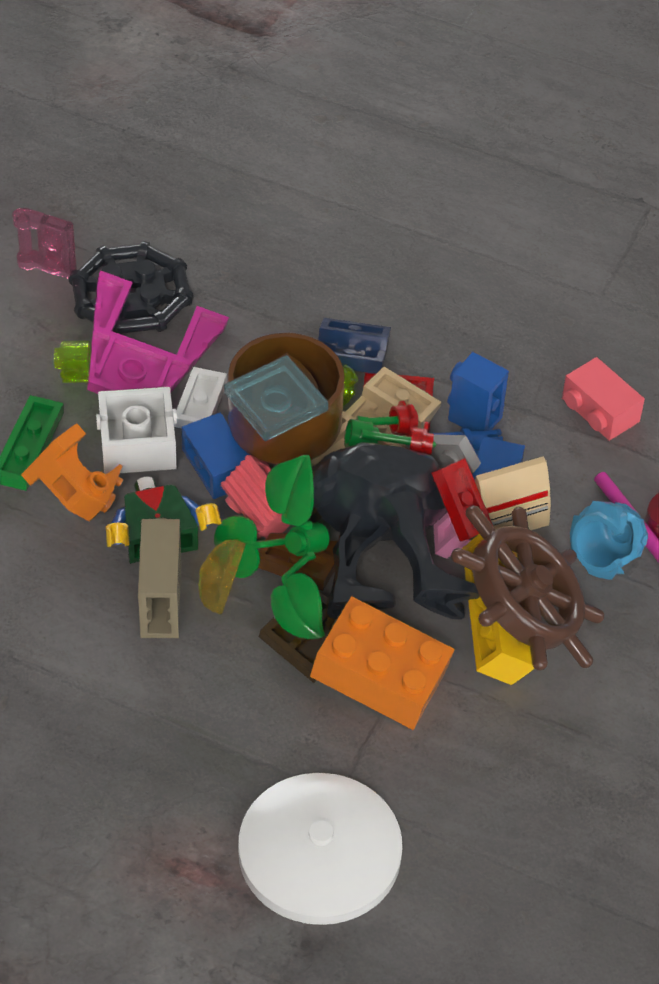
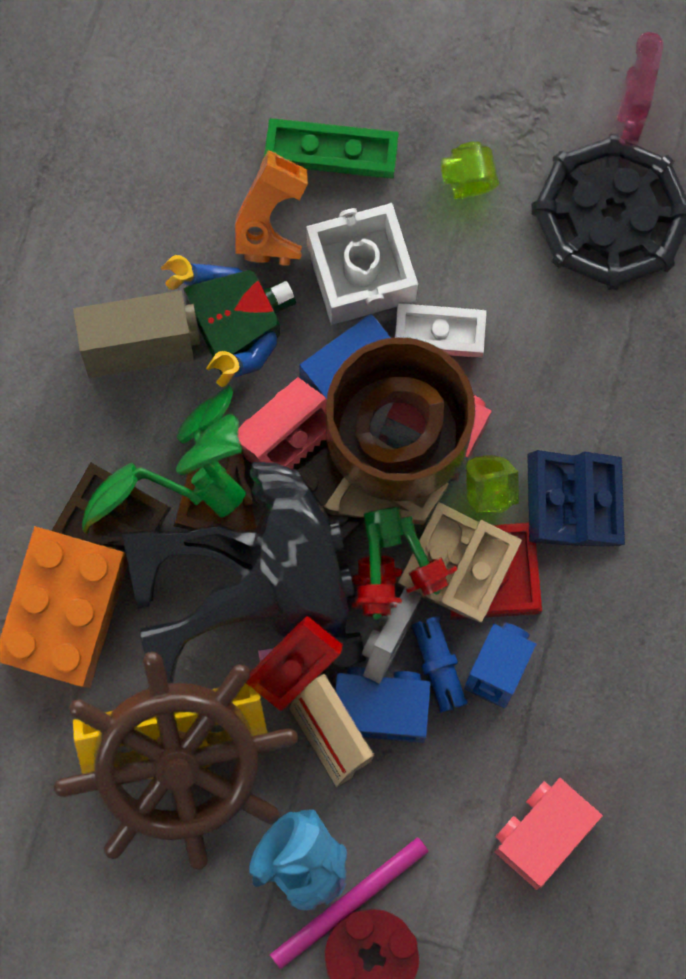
camera: 80 degrees right, 25 degrees up
(131, 364) = (467, 236): dark pink wing -> none
(219, 573) = (163, 402): clear yellow plate -> none
(276, 397) = (352, 401): clear light blue tile -> none

